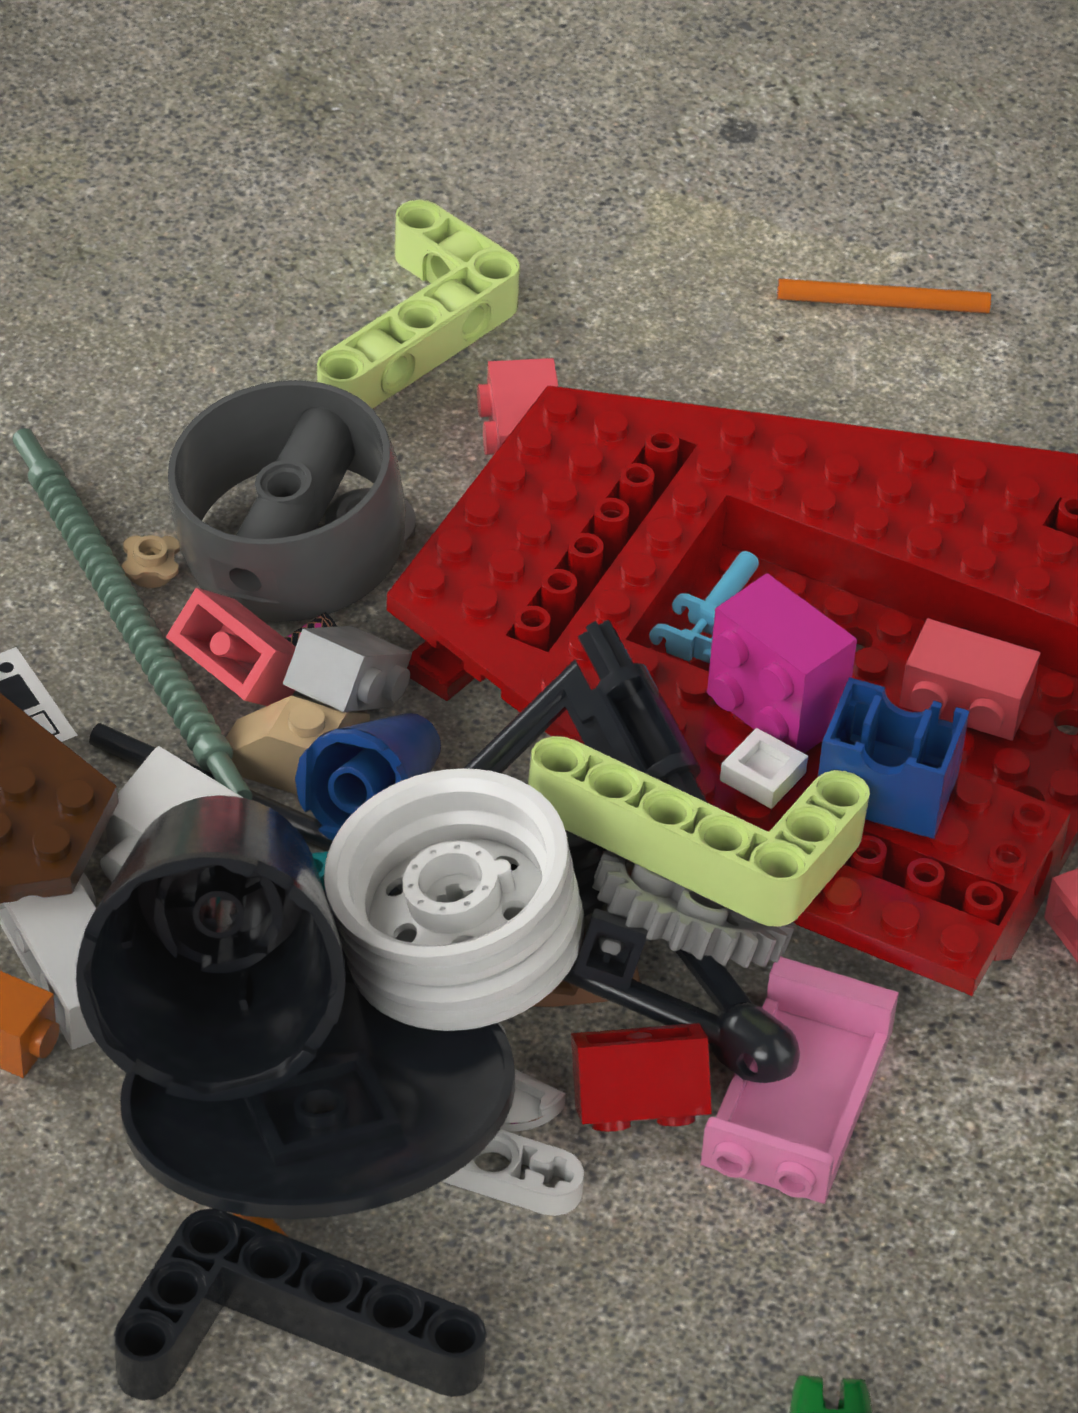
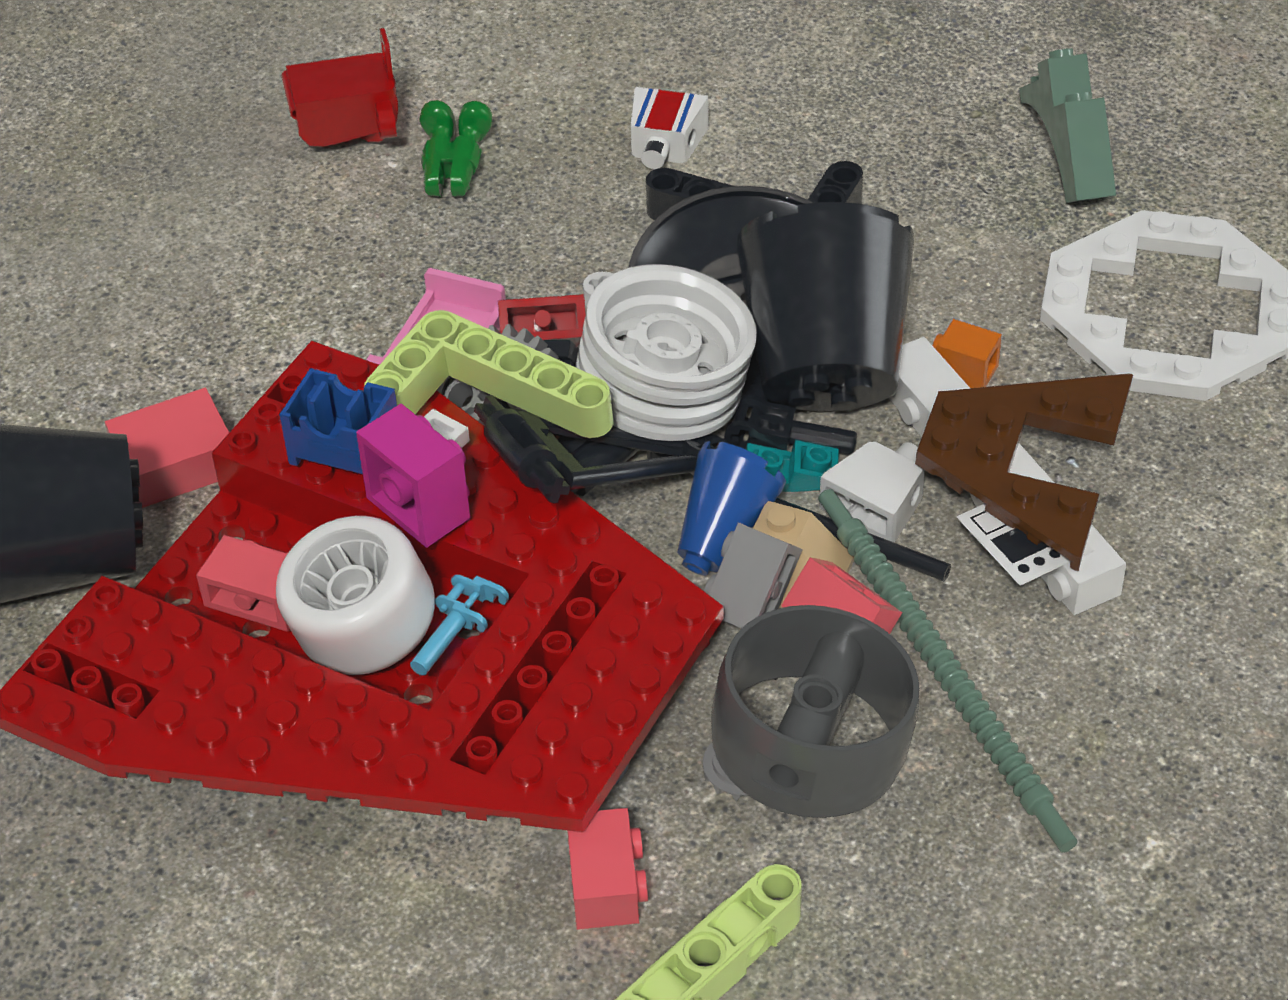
camera: 175 degrees left, 0 degrees up
(151, 560) = (939, 727): tan plate -> none
(857, 580) = (355, 595): none -> white wheel

